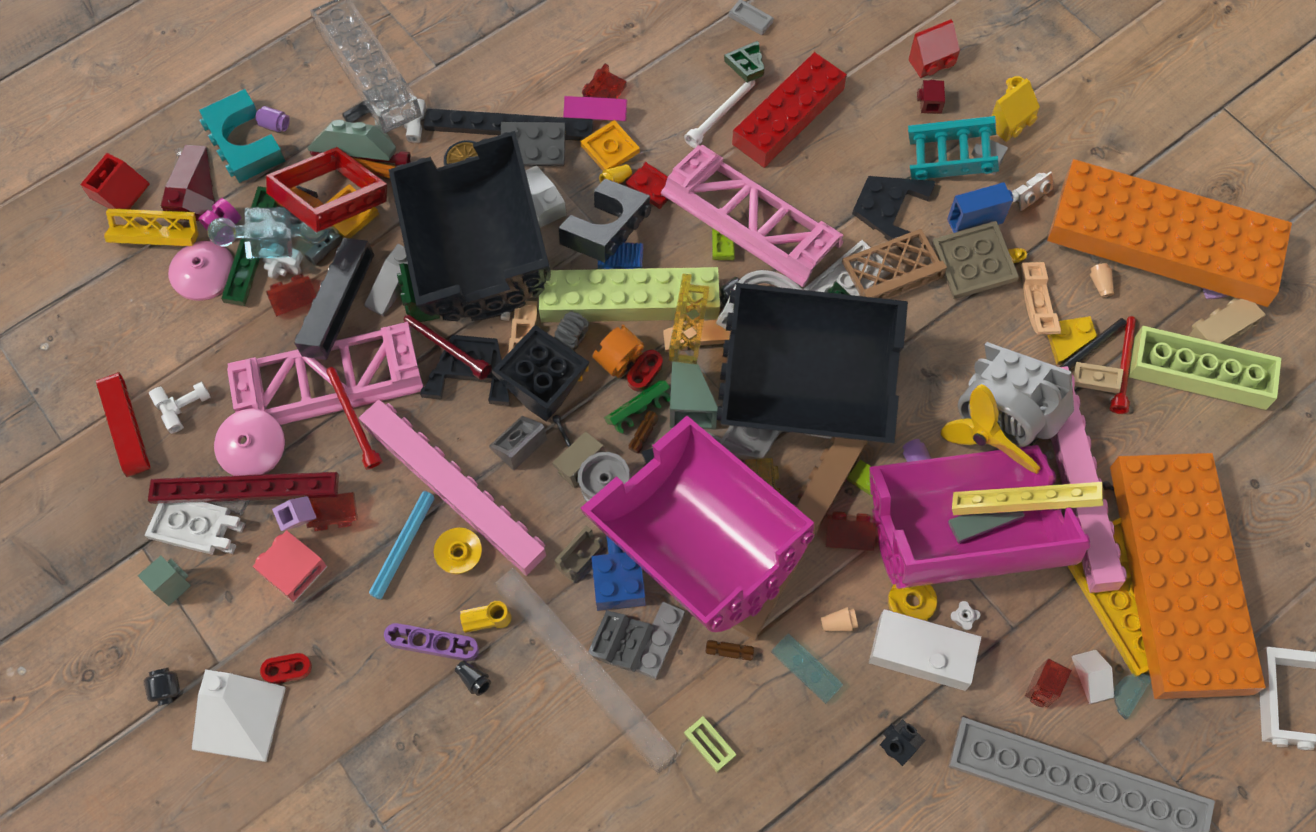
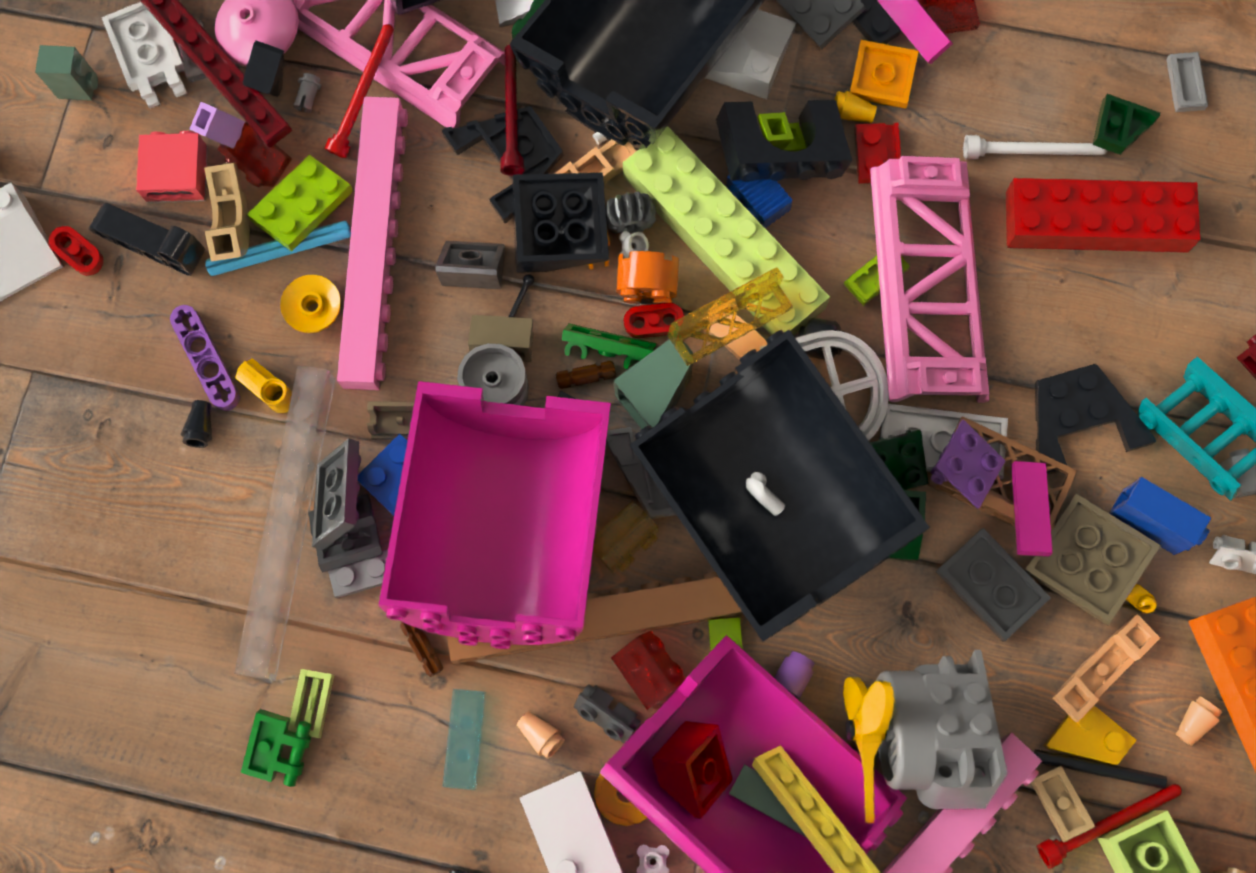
camera: 55 degrees right, 10 degrees up
(285, 457) = (265, 69): none -> black slope
(318, 451) = (307, 91): none -> light grey pin
(323, 616) = (168, 247): none -> black beam
(359, 558) = (230, 223): none -> tan arch
(386, 508) = (300, 202): none -> lime plate
(589, 345) = (638, 239): none -> white plate
(597, 621) = (336, 494): none -> dark grey plate
(598, 216) = (780, 132): none -> lime slope
(717, 788) = (266, 746): none -> green plate
(799, 387) = (762, 494): none -> white arm
(867, 573) = (593, 707): none -> dark grey hinge
(873, 273) = (968, 464): none -> medium lavender hinge
(925, 263) = (1031, 509): none -> dark pink tile
(928, 539) = (693, 766): none -> red slope
(948, 318) = (993, 584): none -> dark grey plate

